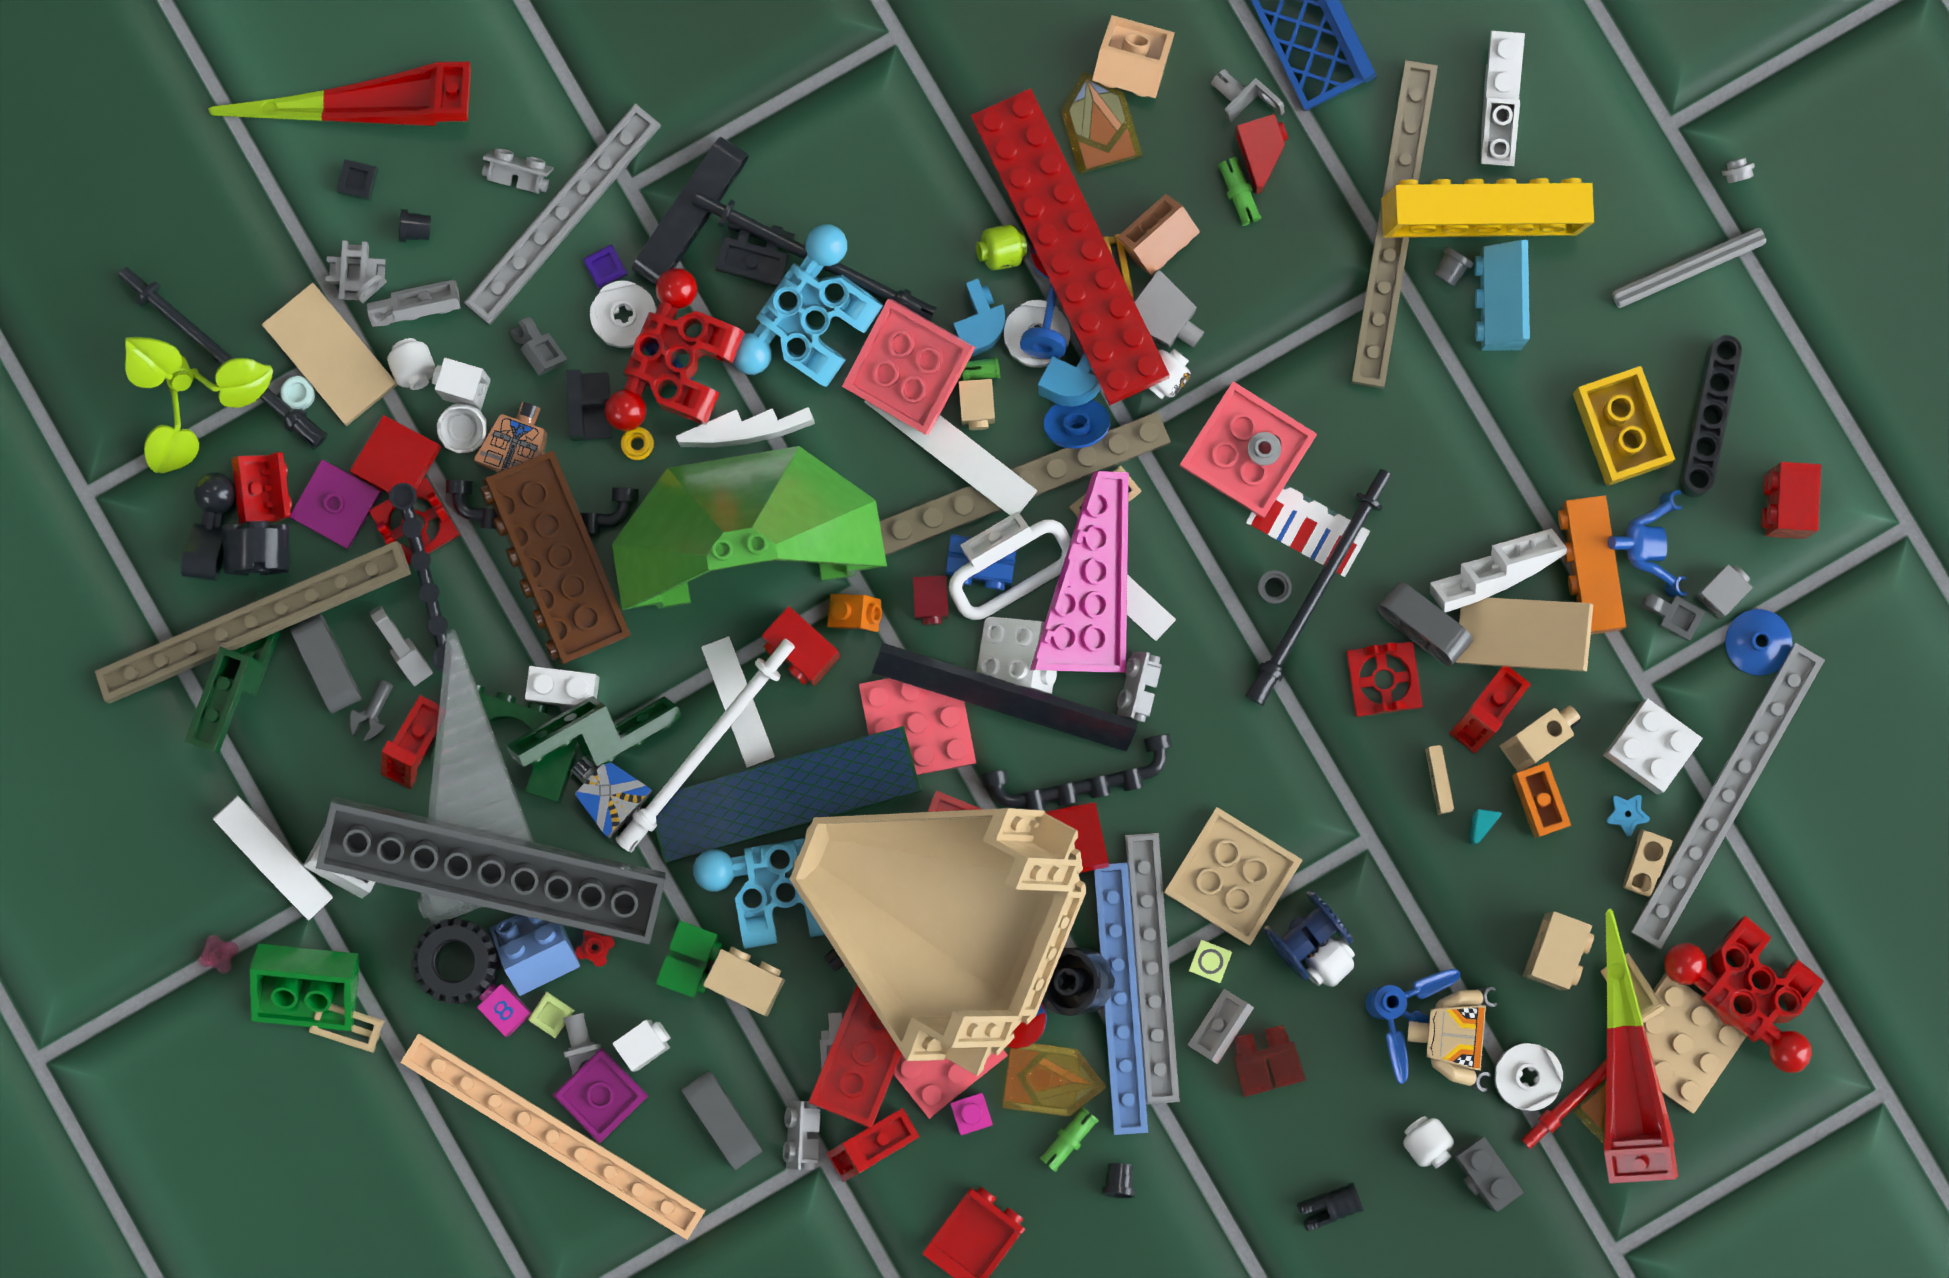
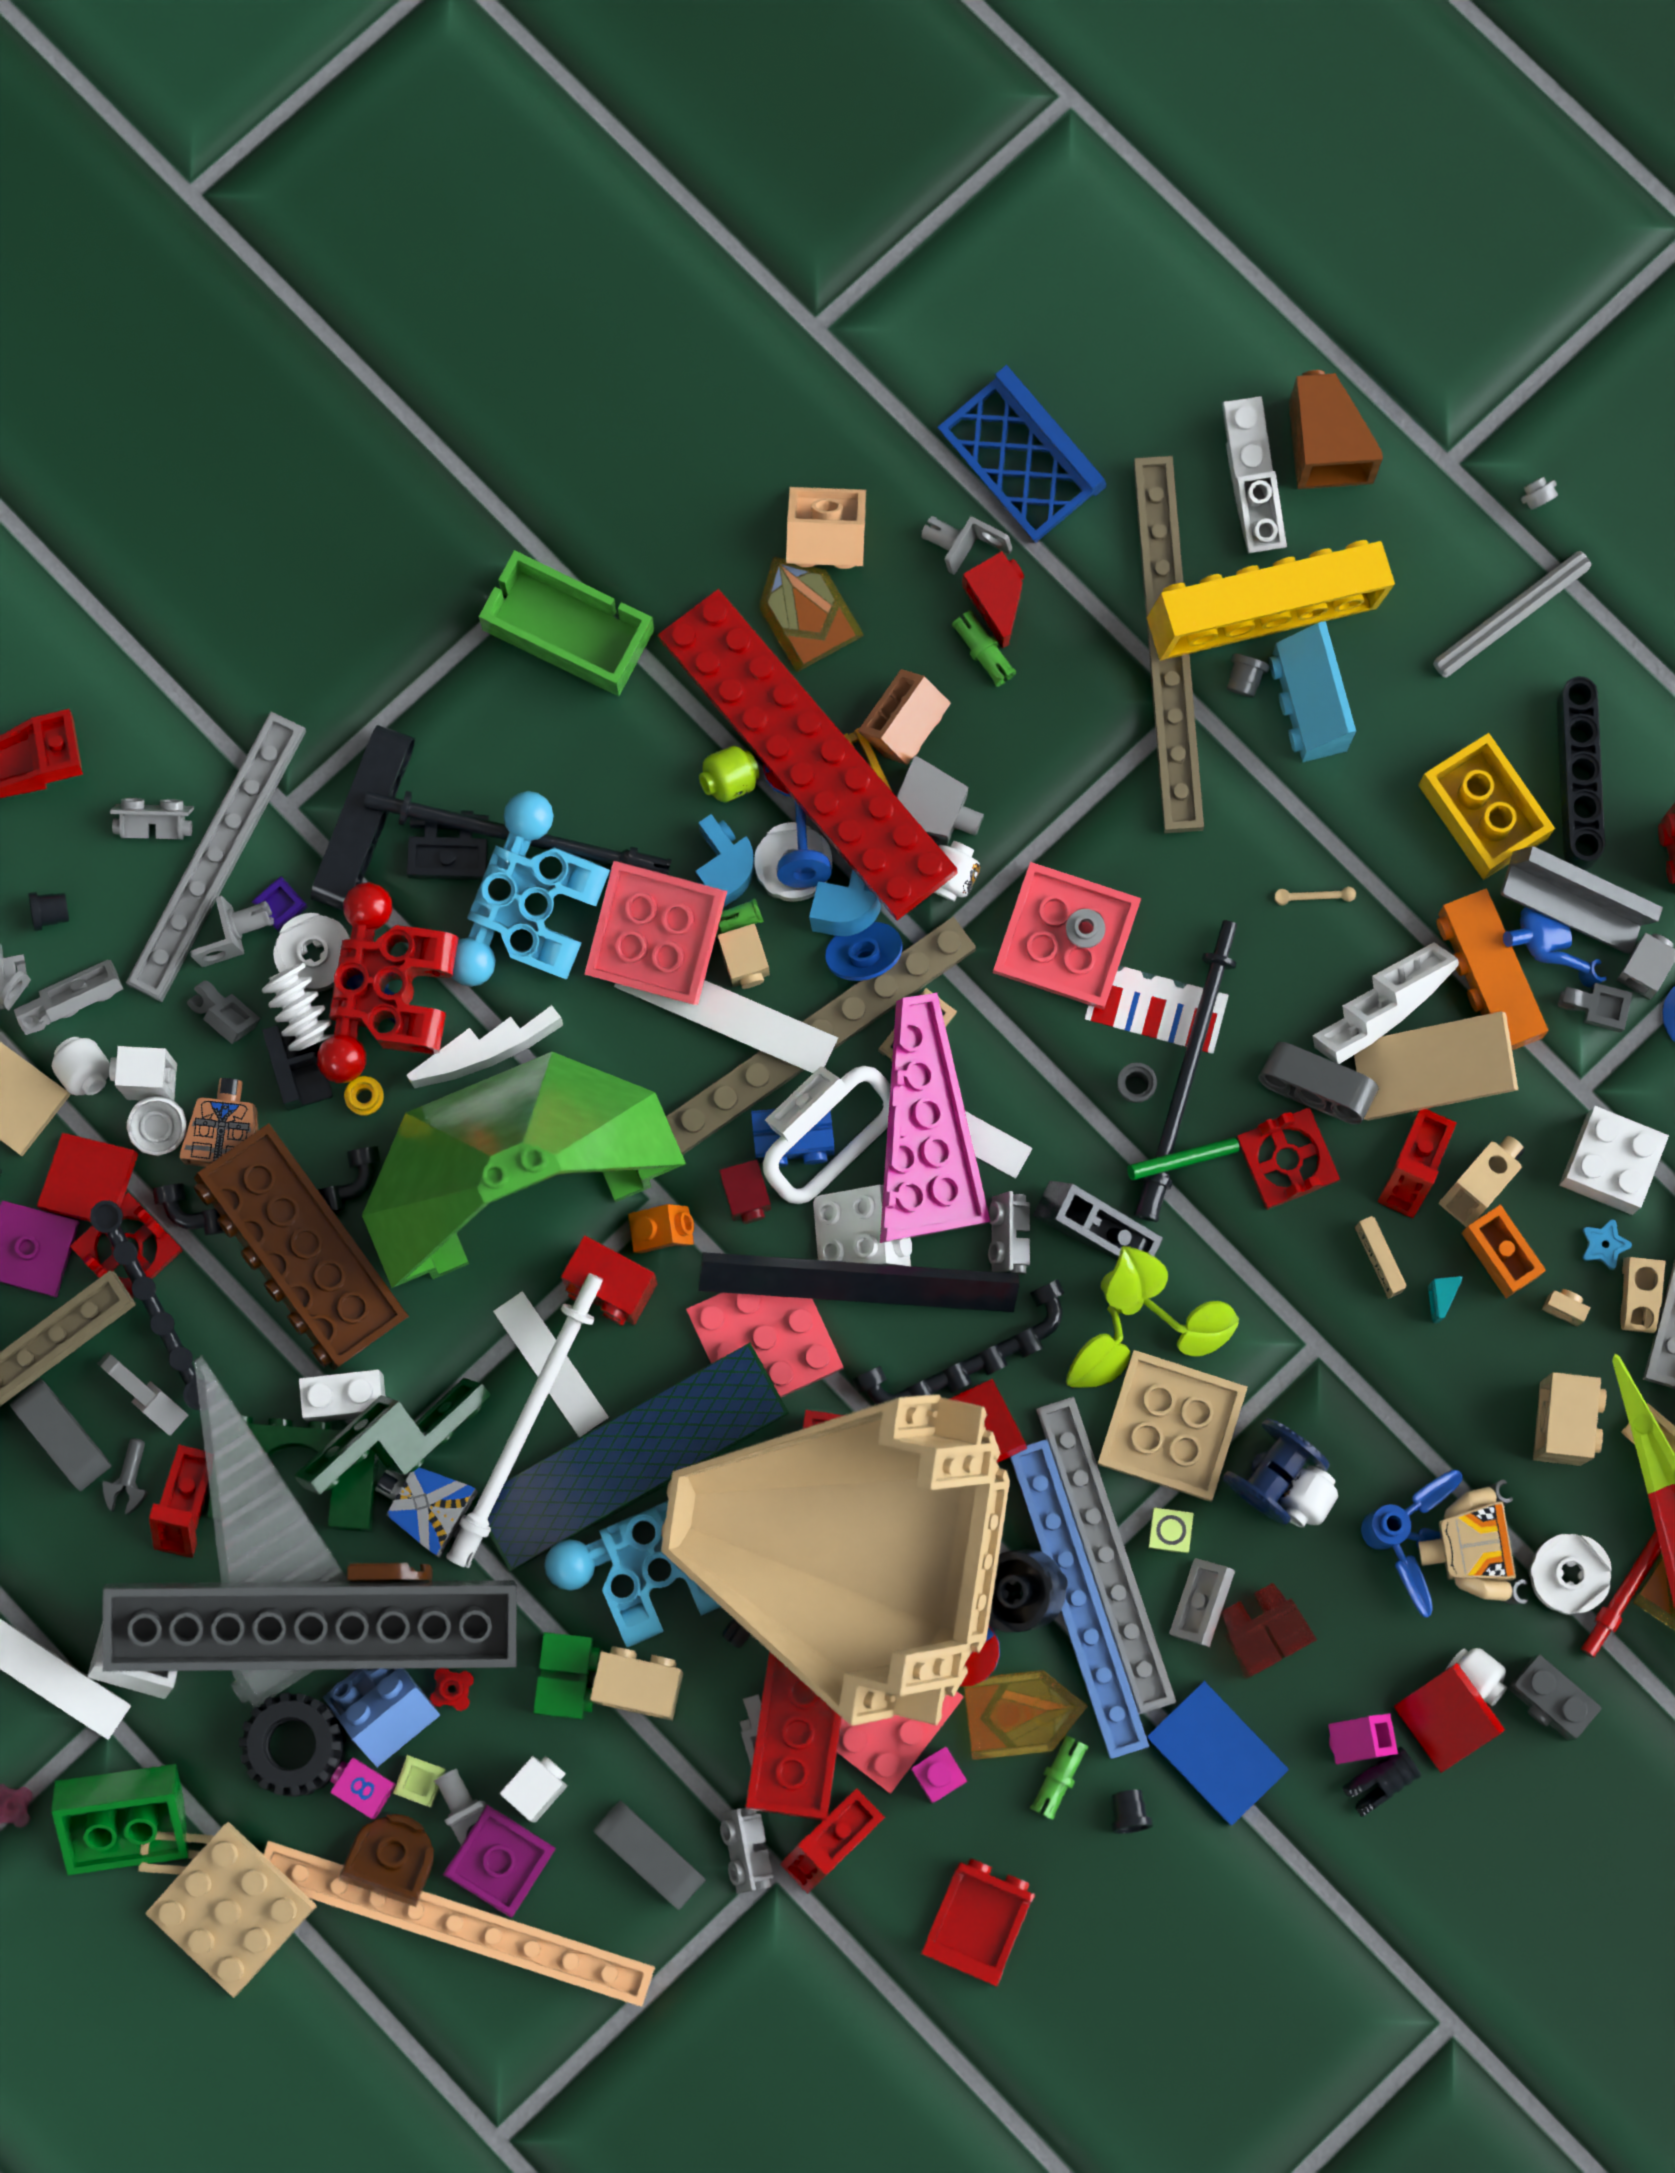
camera: 15 degrees left, 5 degrees down
(375, 1081) = (231, 1909): none -> tan plate
(513, 1072) = (390, 1858): none -> reddish brown tile
(563, 277) = (234, 926): none -> light grey bracket
(565, 842) = (388, 1572): none -> reddish brown tile
(599, 359) = (297, 1008): none -> white piece
(897, 88) = (566, 623): none -> bright green piece
(1202, 1151) = (1217, 1753): none -> blue tile
(1213, 697) = (1092, 1221): none -> black slope
(1223, 756) = (1126, 1290): none -> lime plant
(1297, 659) = (1183, 1158): none -> green bar
(1323, 1169) = (1362, 1738): none -> dark pink brick
(1397, 1169) = (1449, 1717): none -> red tile
(1436, 460) = (1282, 896): none -> tan hinge
(1573, 80) = (1330, 435): none -> dark orange slope
(1582, 857) = (1566, 1306): none -> tan plate
(1678, 522) = (1577, 898): none -> panel

